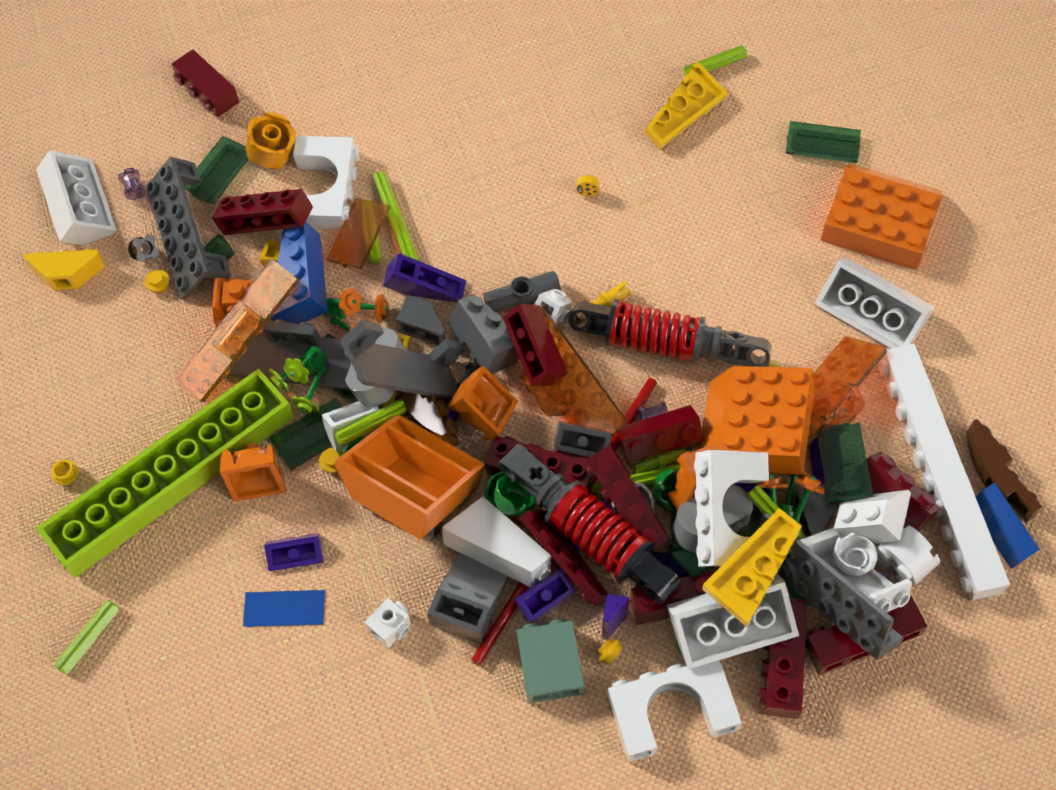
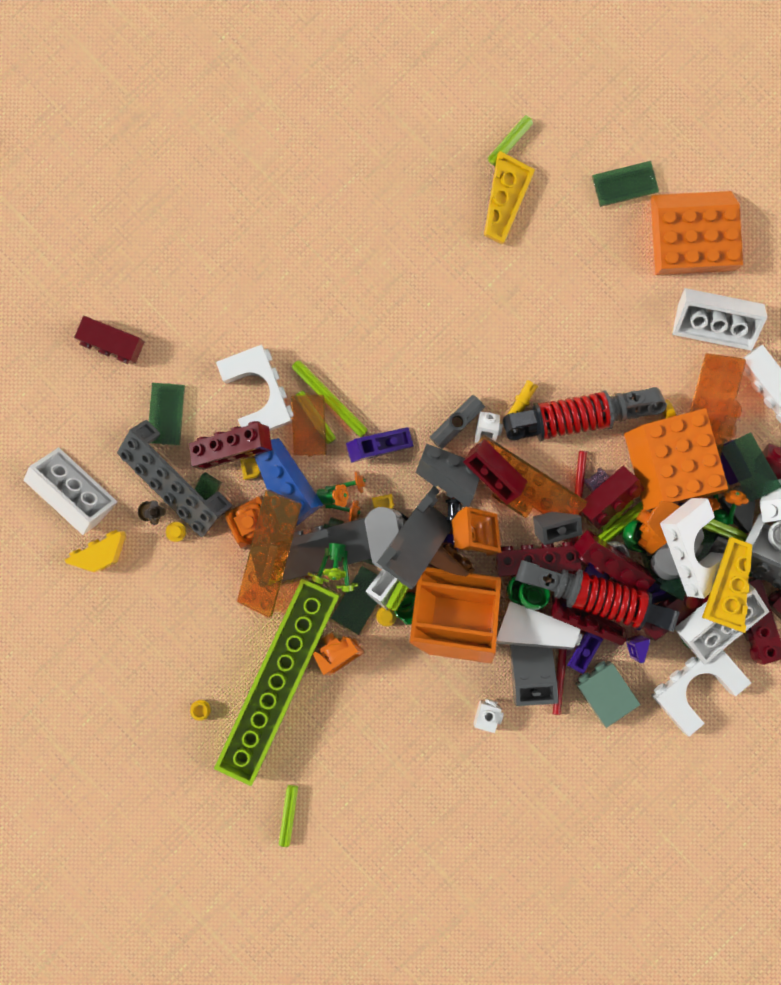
camera: 25 degrees left, 25 degrees up
(133, 187) = (106, 457): bush -> none
(270, 140) = (203, 366): light orange brick -> none
(284, 608) = (408, 734): blue sticker -> none
(294, 552) = (394, 692): dark purple slope -> none
(420, 320) = (393, 477): dark grey slope -> none
(587, 185) = (463, 305): yellow tile -> none
(609, 650) = (642, 669): yellow plate -> none

